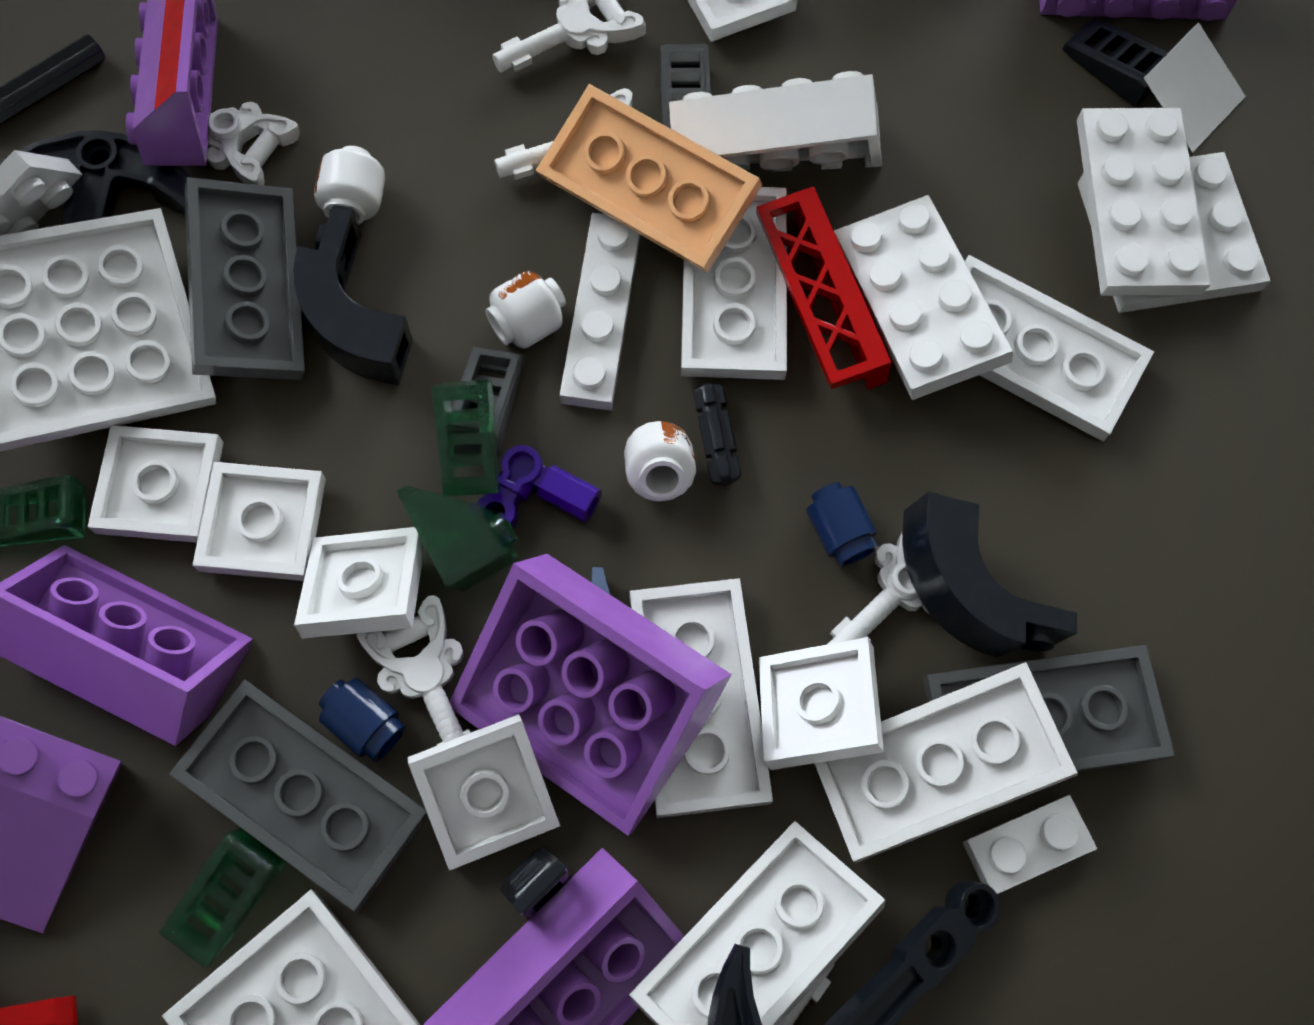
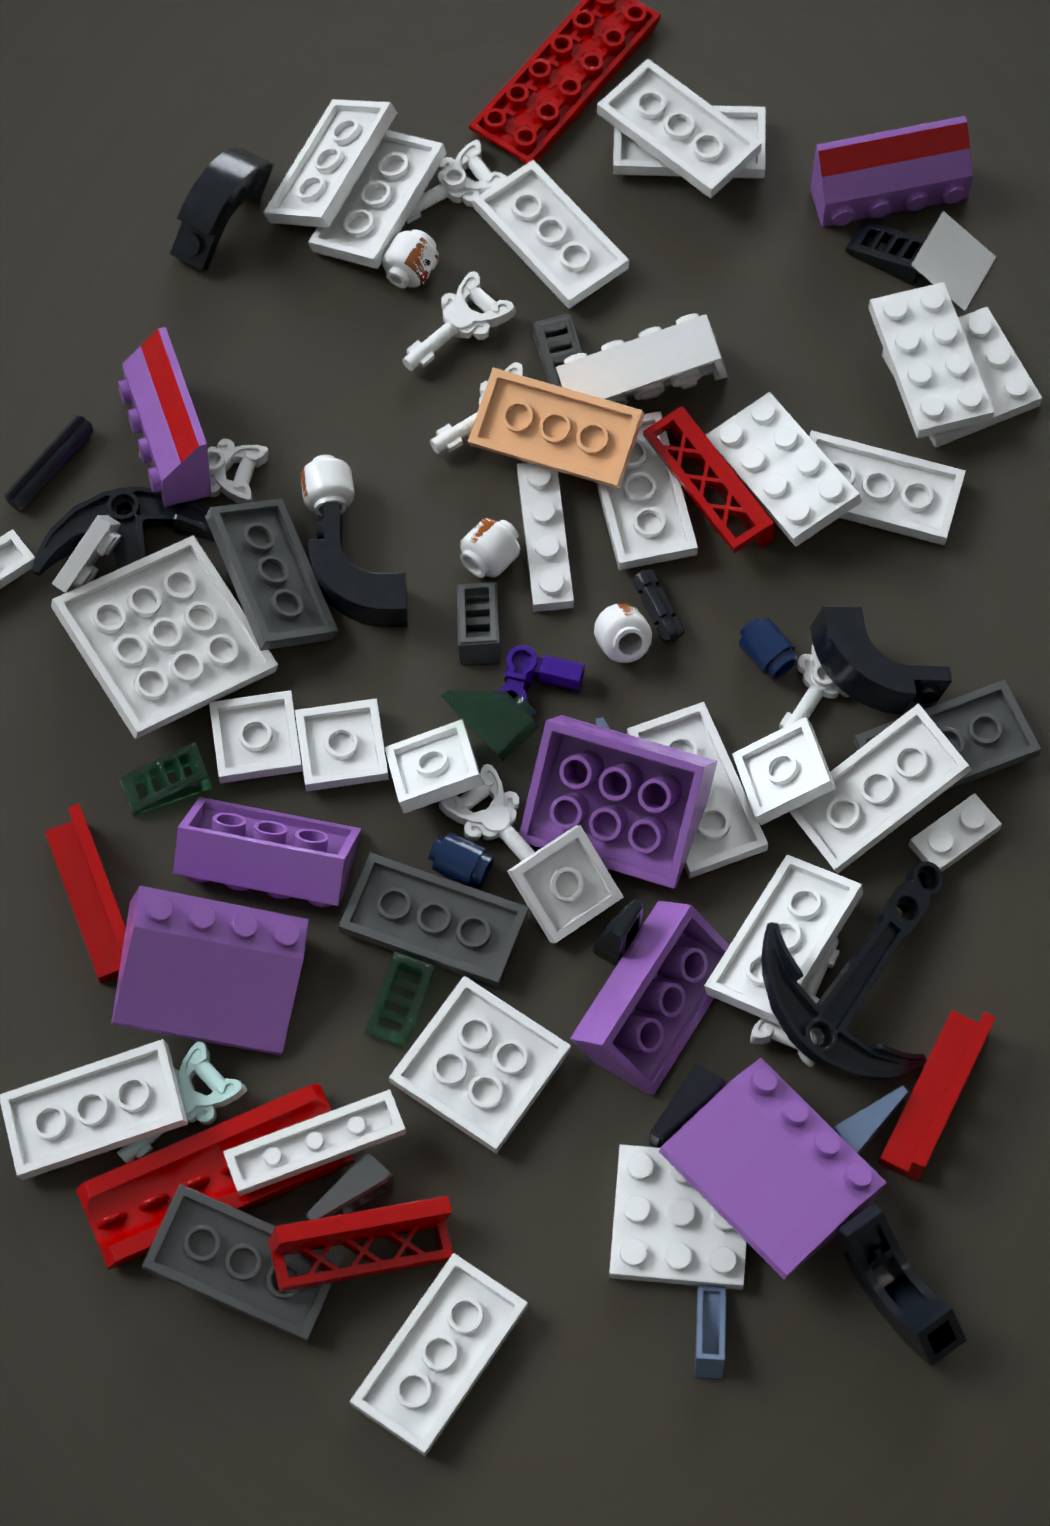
camera: 10 degrees left, 5 degrees down
(444, 417) = (472, 613): clear green slope -> none

